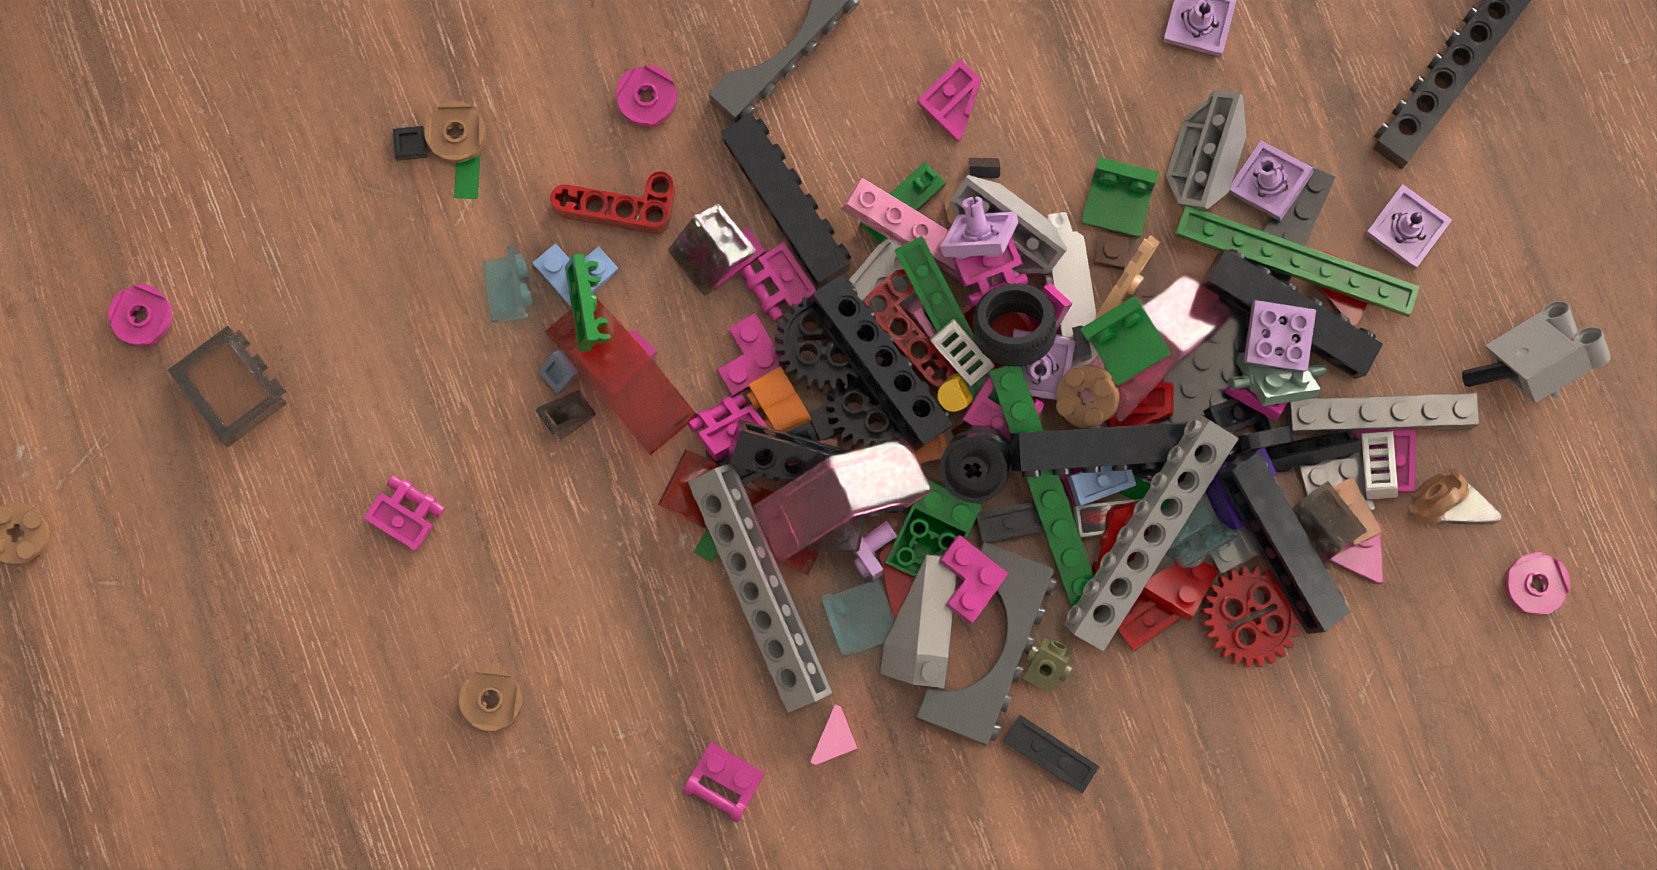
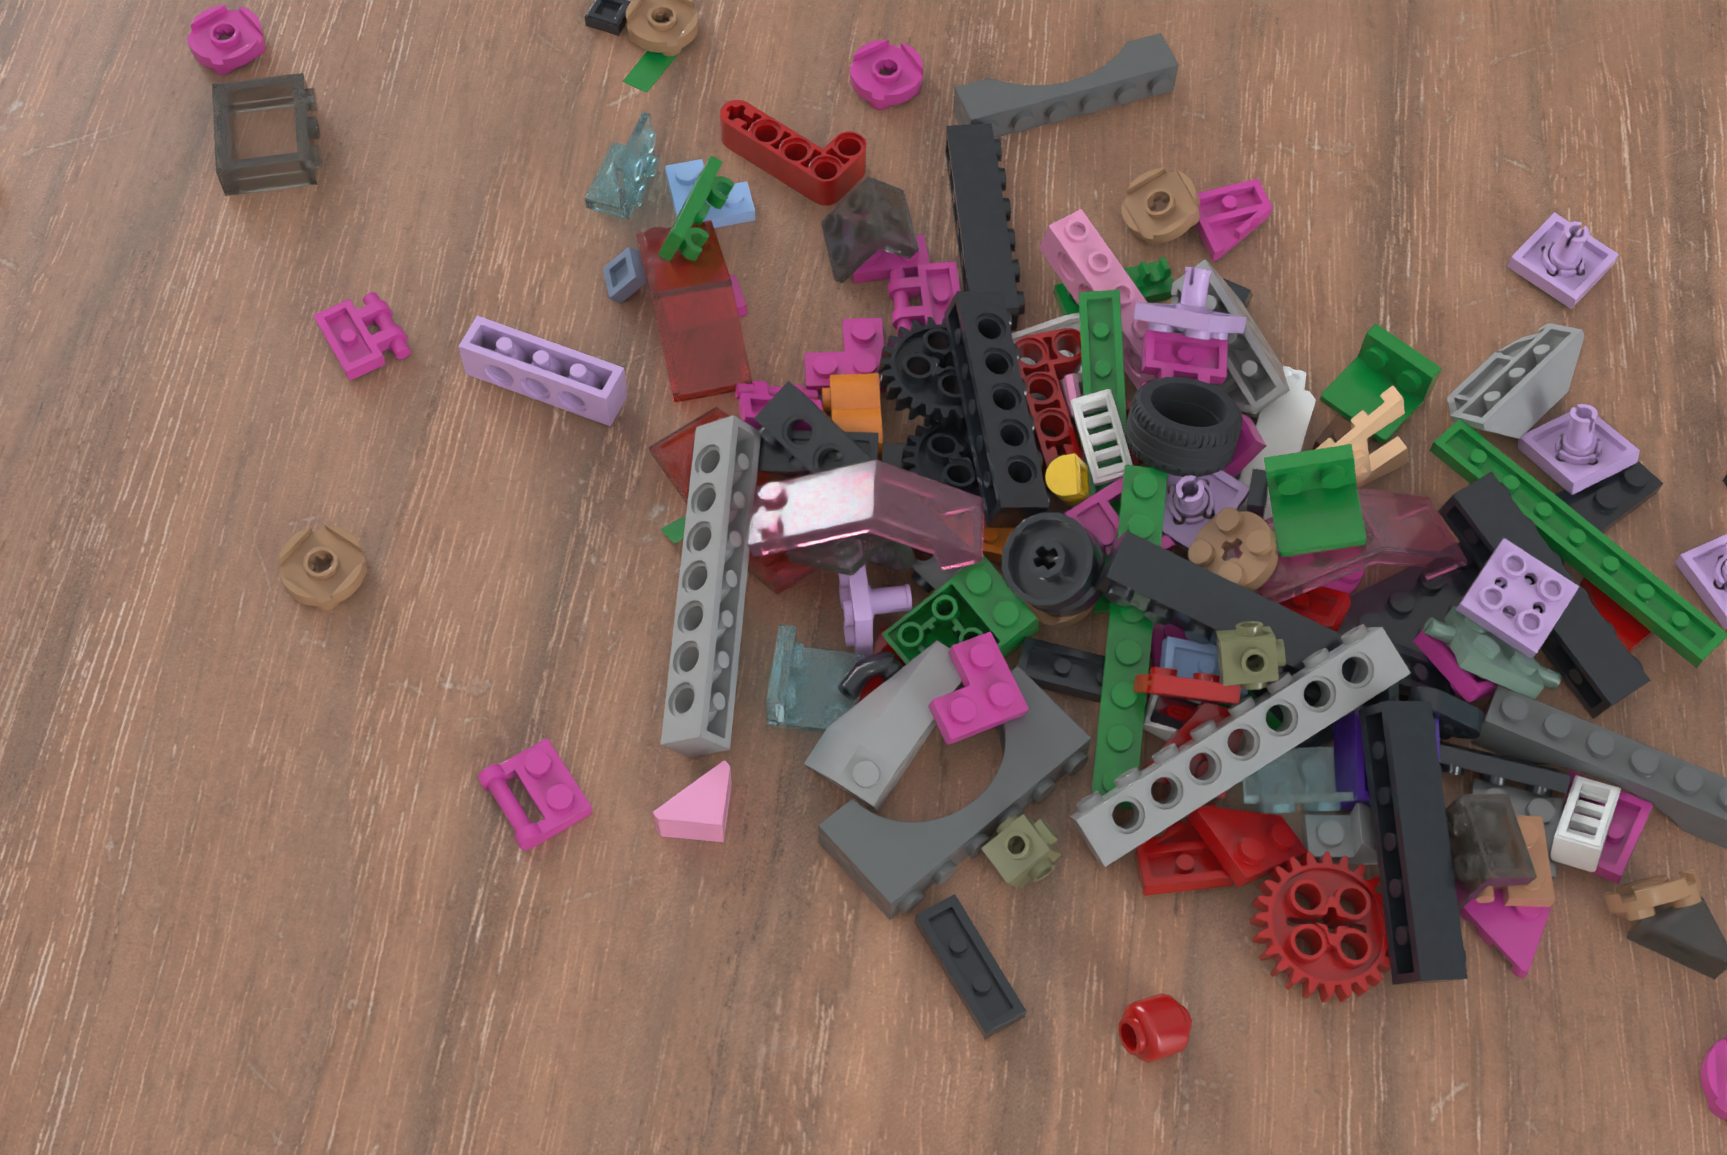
camera: 25 degrees right, 20 degrees down
(551, 481) = (543, 370): none -> lavender brick
(565, 414) = (602, 318): clear smoke slope -> none
(889, 589) = (867, 668): none -> black arm
(920, 118) = (1165, 224): none -> medium nougat plate
(1101, 512) = (1201, 688): none -> red plate
(1133, 477) = (1235, 657): none -> olive brick
(1179, 736) = (1155, 1028): none -> red head

